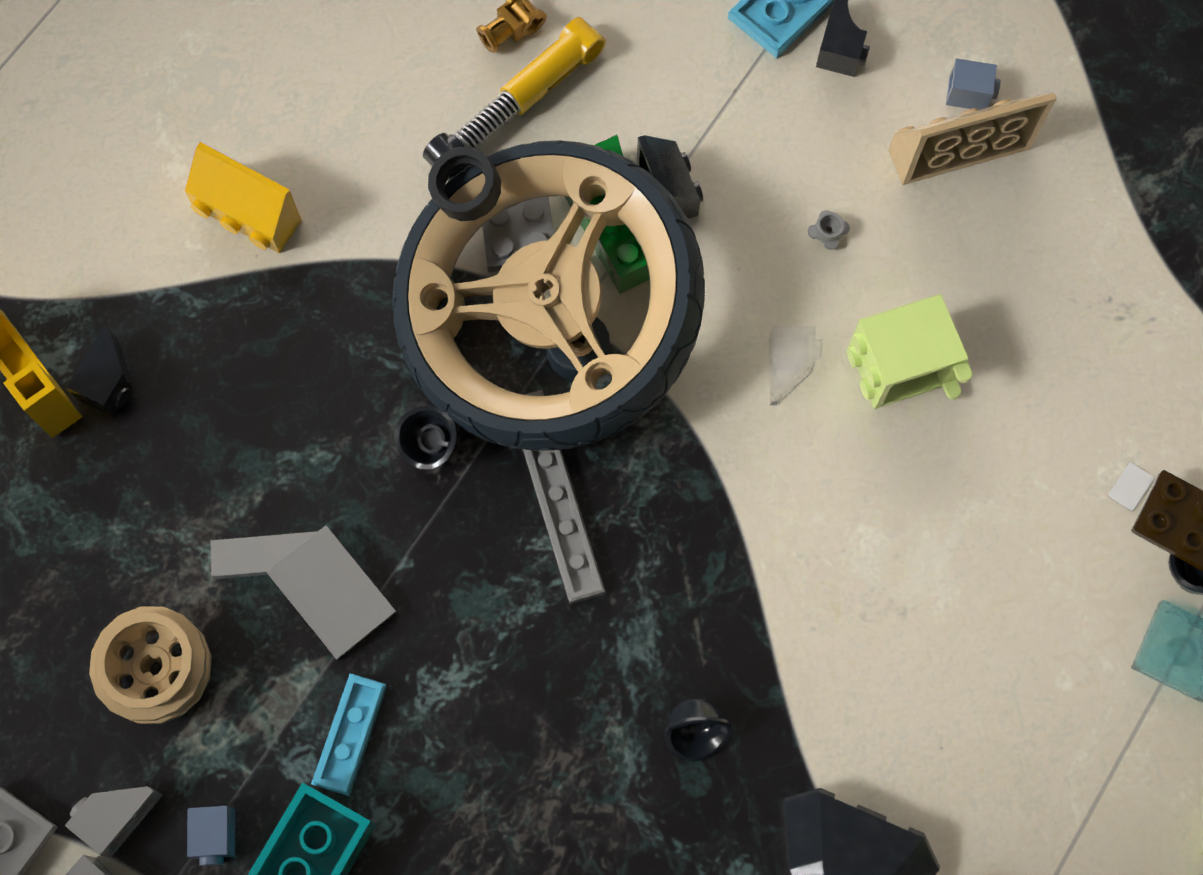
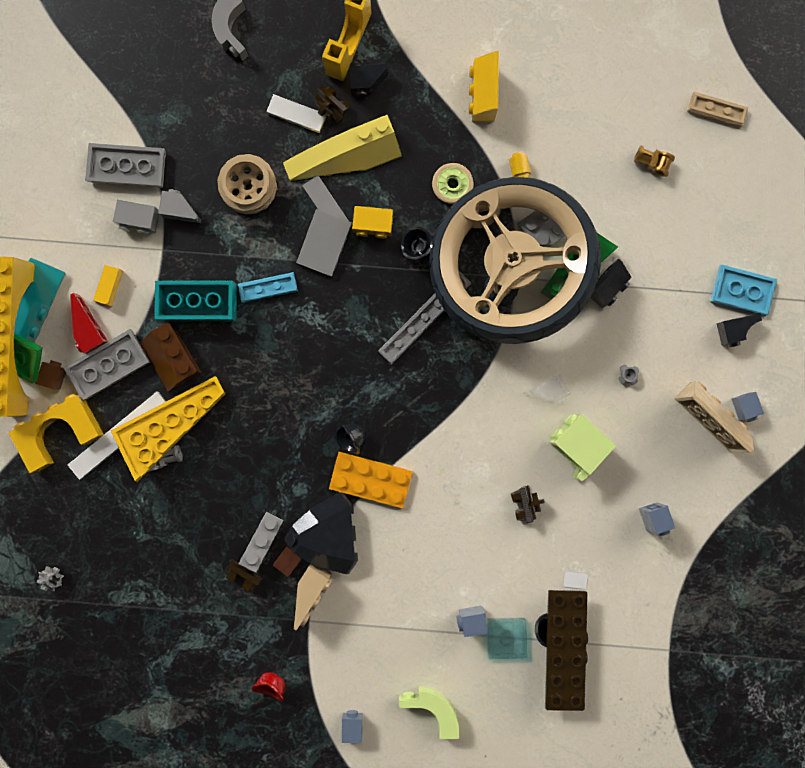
camera: 65 degrees right, 15 degrees up
(84, 521) = (296, 113): none -> white tile
(106, 455) = (330, 105): none -> dark brown hips
(205, 462) = (347, 152): none -> light yellow wedge
(211, 834) = (193, 254): sand blue brick -> none
(346, 490) = (372, 221): none -> yellow brick
(355, 313) = (448, 172): none -> yellowish green wheel
(396, 215) = (519, 165): none -> yellow brick
(446, 165) = (540, 176): black tyre -> none
(576, 46) = (658, 199): yellow piece -> none
(787, 737) = (370, 479): none -> light orange plate
(979, 501) = (527, 513): none -> dark brown hips
(1090, 300) = (657, 518): none -> sand blue brick
(1128, 687) = (472, 621): none -> sand blue brick

